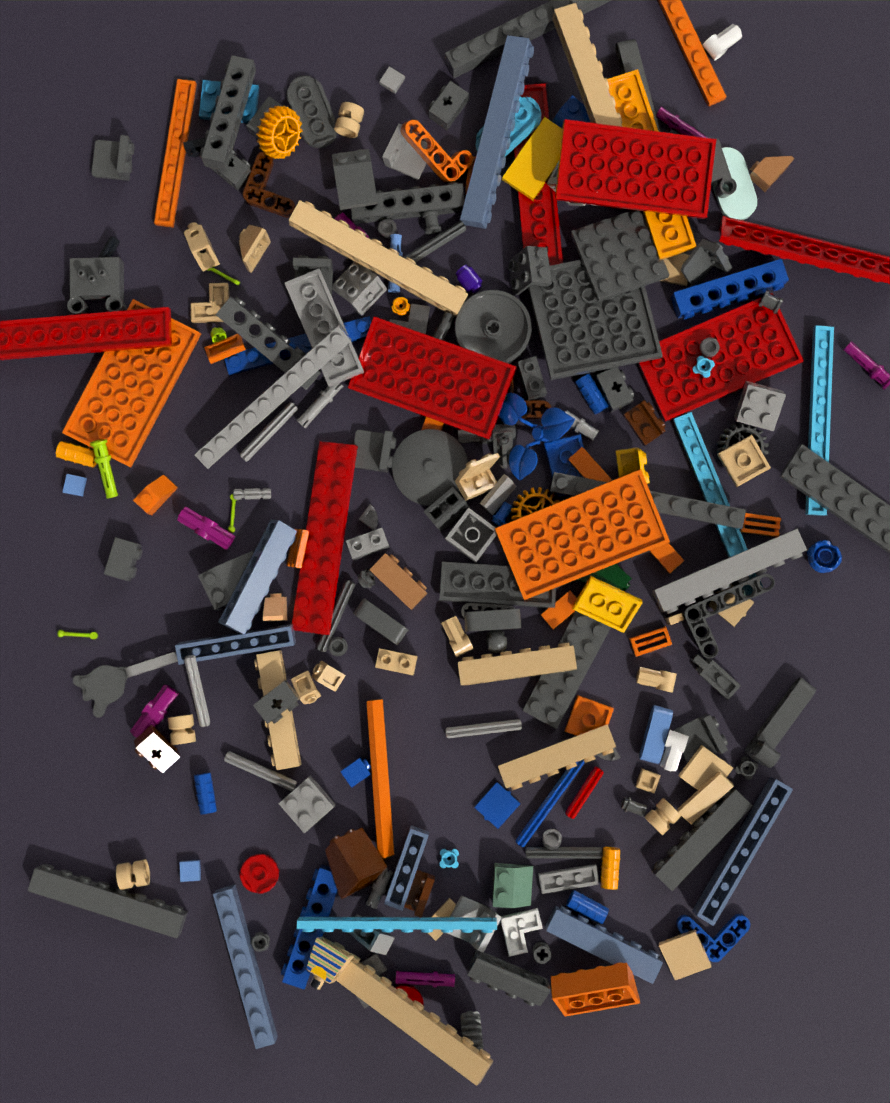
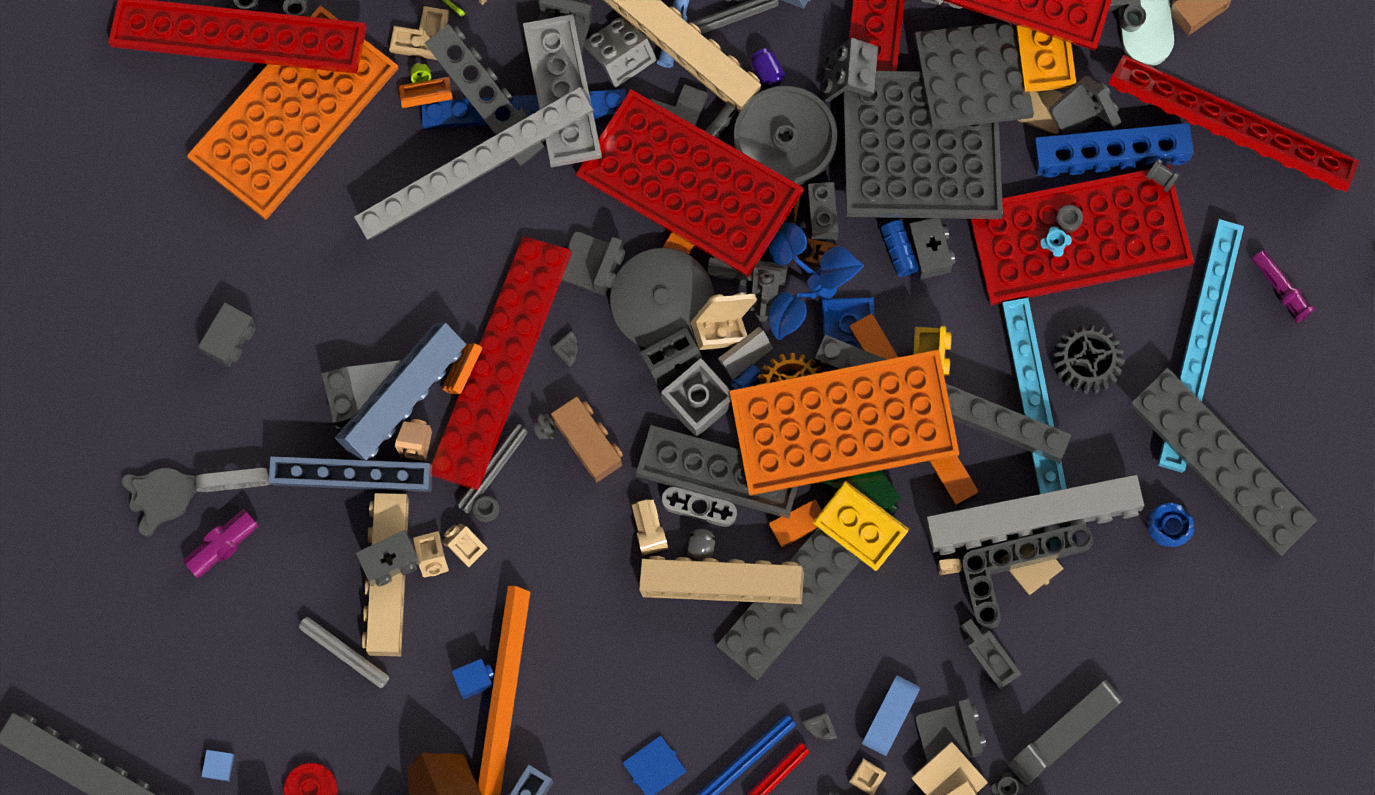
camera: 15 degrees right, 10 degrees down
(74, 485) = (186, 227): medium blue tile -> none
(75, 454) = (199, 188): light orange axle -> none
(93, 635) = (163, 427): lime hinge -> none
(103, 459) = (232, 198): lime pin -> none
(136, 874) = (131, 751): tan wheel -> none
(153, 739) = (206, 575): brick -> none
(155, 494) = (289, 260): orange slope -> none
(181, 729) = (252, 572): tan wheel -> none
(197, 690) = (285, 524): light grey axle -> none
(205, 793) = (263, 665): blue axle -> none
(206, 528) = (346, 317): magenta piece -> none
(231, 528) = (392, 287): lime hinge -> none
(254, 493) = (417, 285): light grey axle -> none
(268, 431) = (458, 210): light grey axle -> none
(307, 804) = (397, 707): light grey brick -> none
(316, 407) = (542, 182): light grey pin -> none
(367, 544) = (556, 381): light grey brick -> none
(380, 621) = (550, 487): dark grey beam -> none
(396, 661) = (560, 543): tan brick -> none
(400, 301) = (668, 78): light orange plate -> none
(484, 728) = (658, 659): light grey axle -> none
(492, 620) = (701, 513): dark grey beam -> none
(557, 756) = (749, 714): tan brick -> none
(583, 427) = (876, 287): light grey pin -> none
(587, 716) = (804, 678): orange tile -> none
(644, 422) = (963, 300): reddish brown bracket -> none
(660, 679) = (914, 644): tan piece -> none
(666, 636) = (910, 601): orange tile -> none
(674, 746) = (914, 733): white piece -> none
(743, 461) = (1084, 373): tan tile -> none
(759, 406) = (1121, 307): light grey brick -> none
(776, 526) = (1093, 456): orange tile -> none

